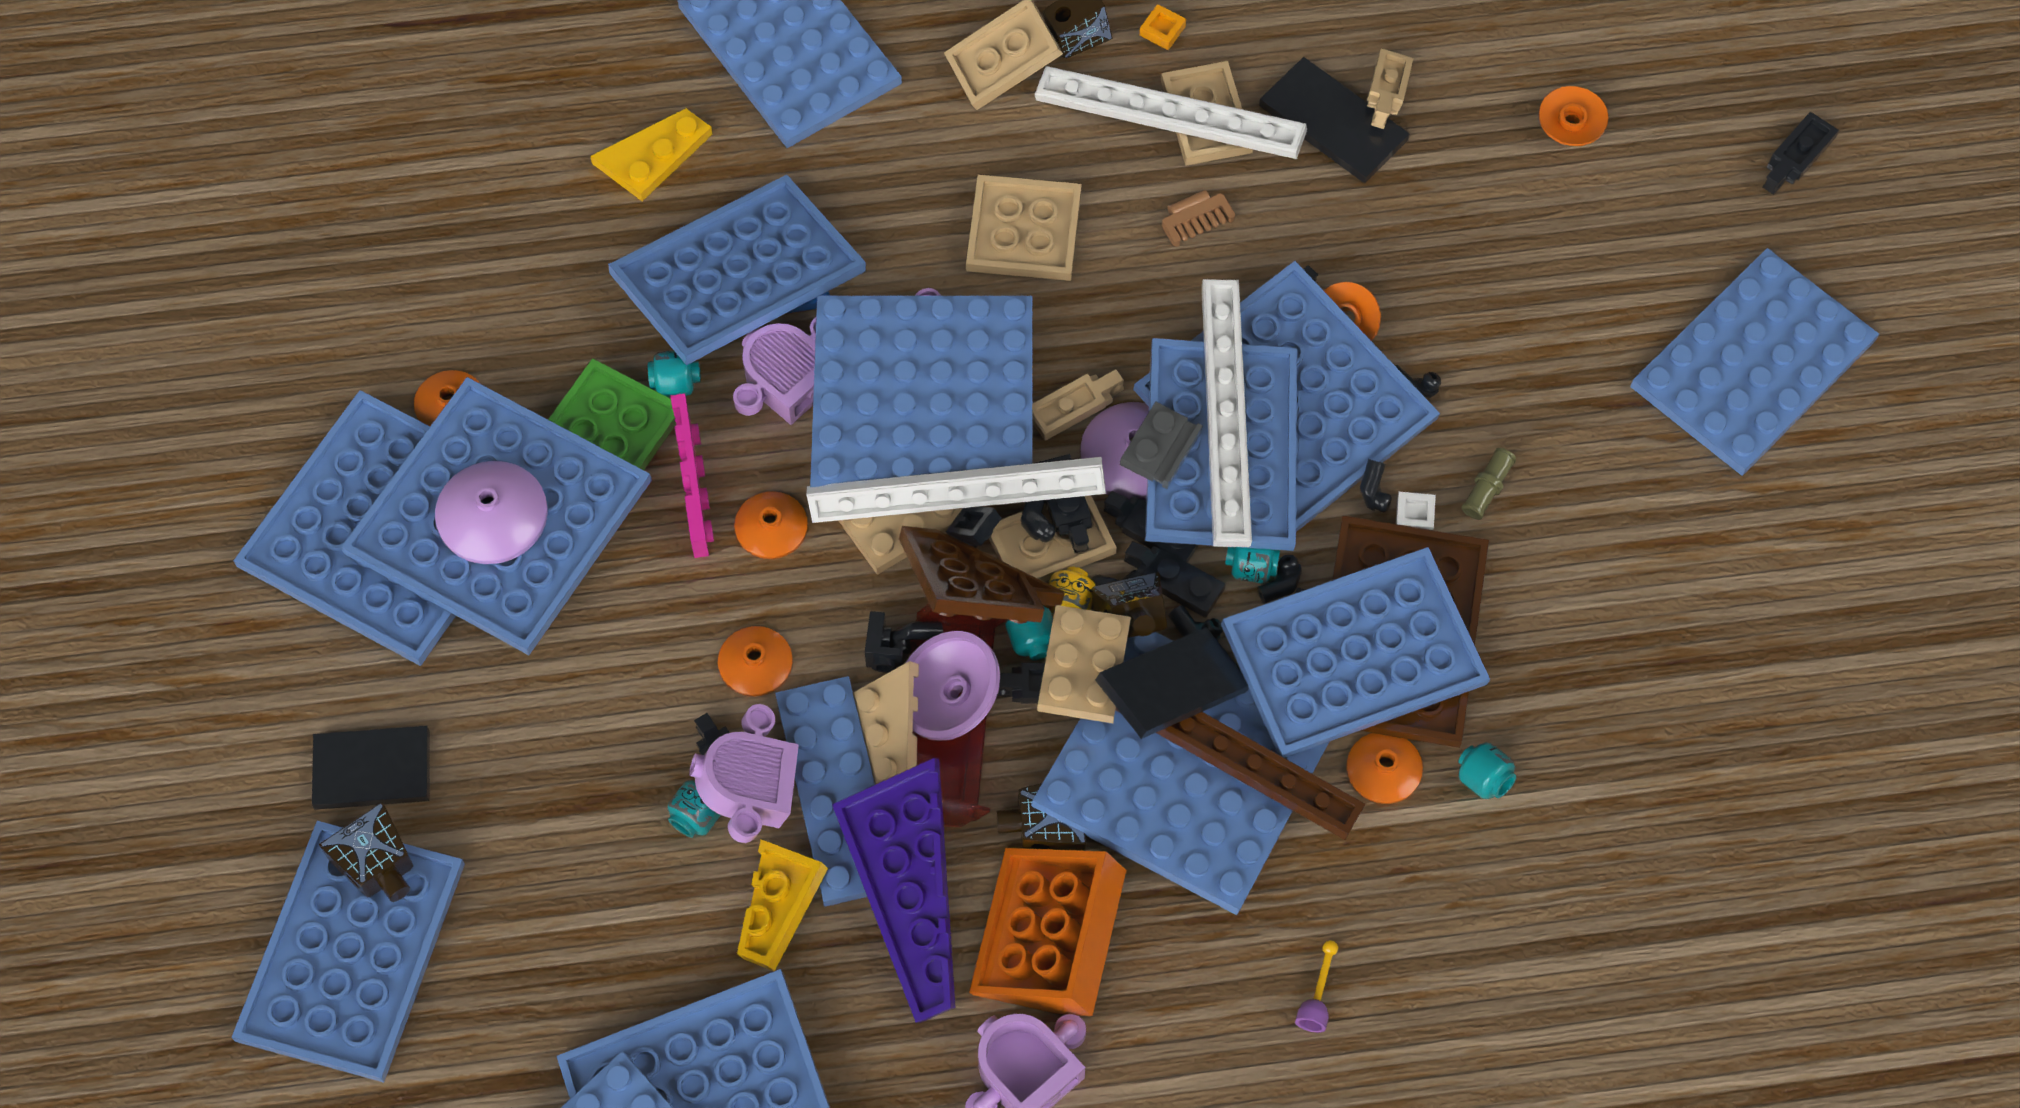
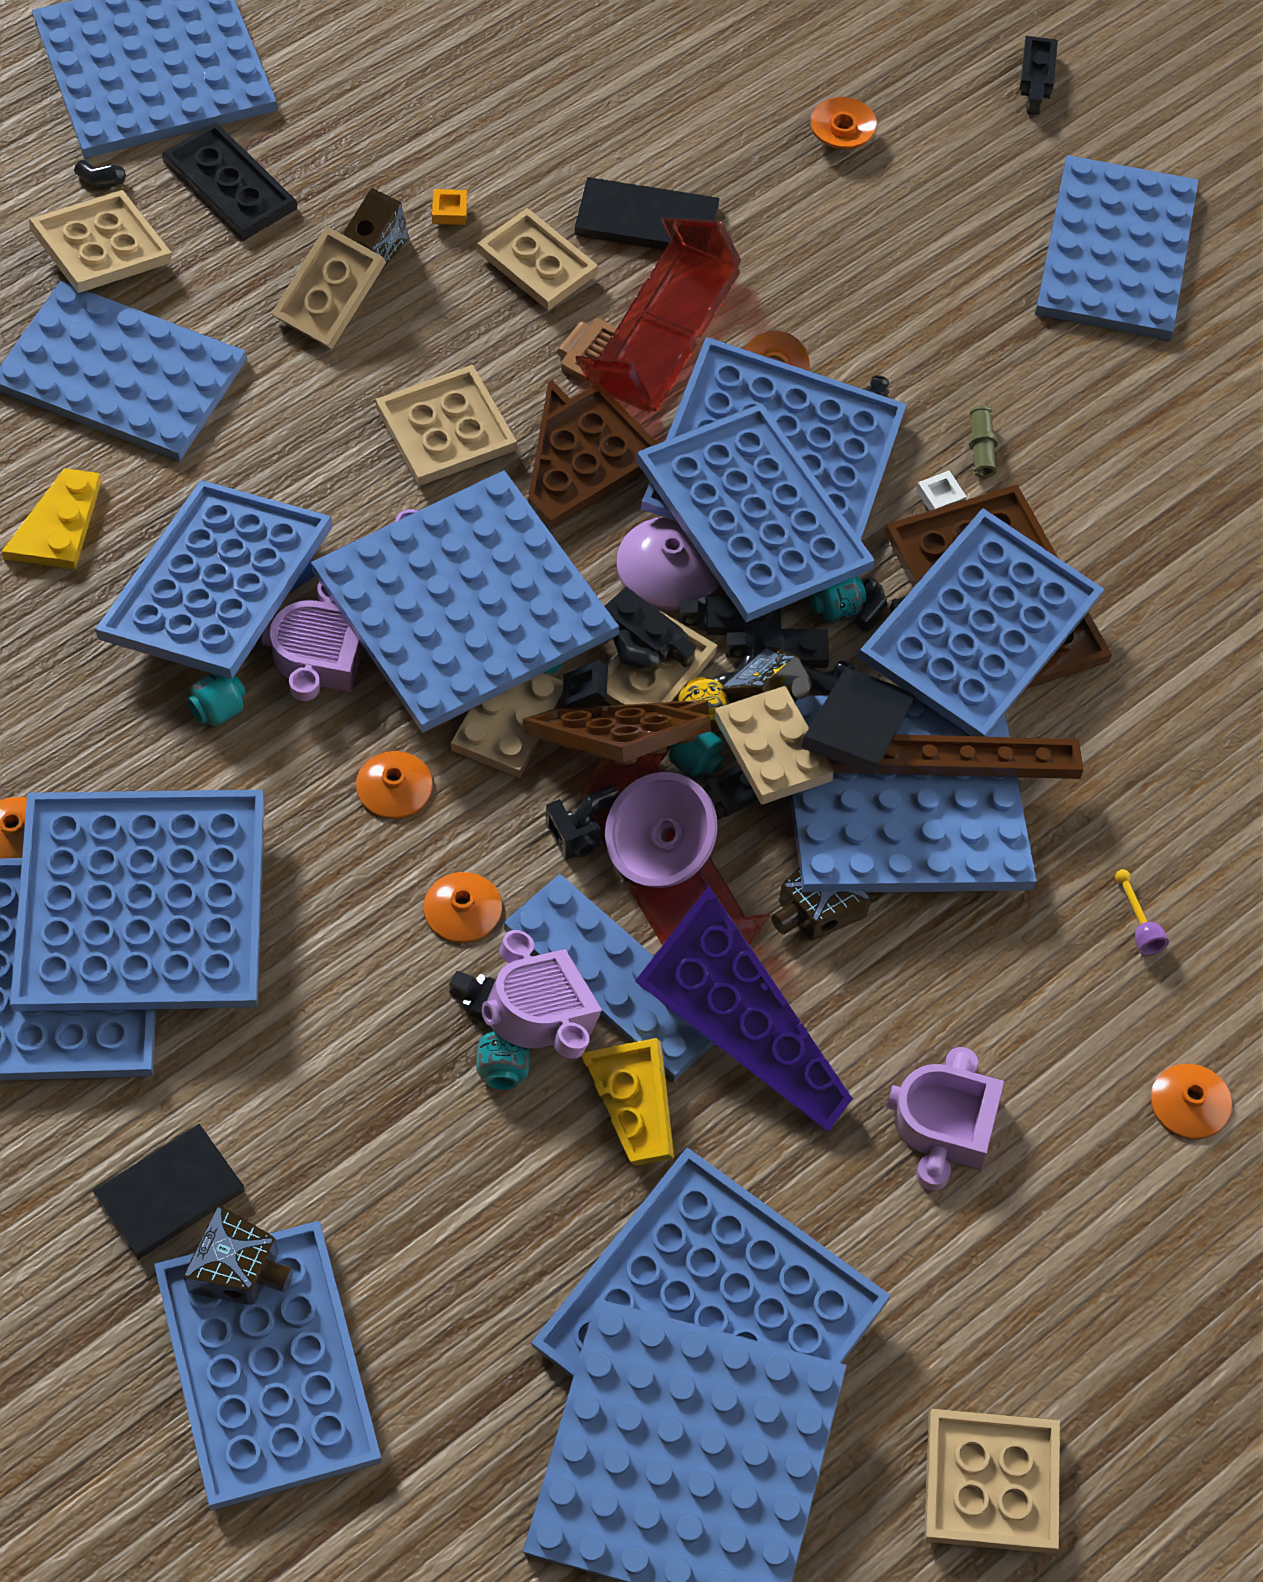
camera: 35 degrees left, 5 degrees down
(492, 530) = (139, 916): lavender dish -> none
(616, 414) = (187, 755): bright green plate -> none
(691, 470) = (296, 775): dark pink wing -> none
(887, 721) = (626, 892): tan wing -> none
(956, 489) = (552, 662): white tile -> none
(1049, 929) = (884, 989): orange slope -> none
(1075, 403) = (597, 542): tan hinge -> none
(1122, 310) = (582, 452): none -> reddish brown wing
(1160, 445) = (709, 533): dark grey plate -> none
(1171, 112) = (508, 270): white tile -> none
(1226, 414) = (744, 482): white tile -> none
(1285, 220) = (667, 314): none -> clear red piece
(1371, 489) = (891, 489): black arm -> none
(1379, 782) = (1055, 721): orange dish -> none
(1388, 85) = (677, 166): tan hinge -> none
(1486, 771) = (1146, 666): teal head -> none

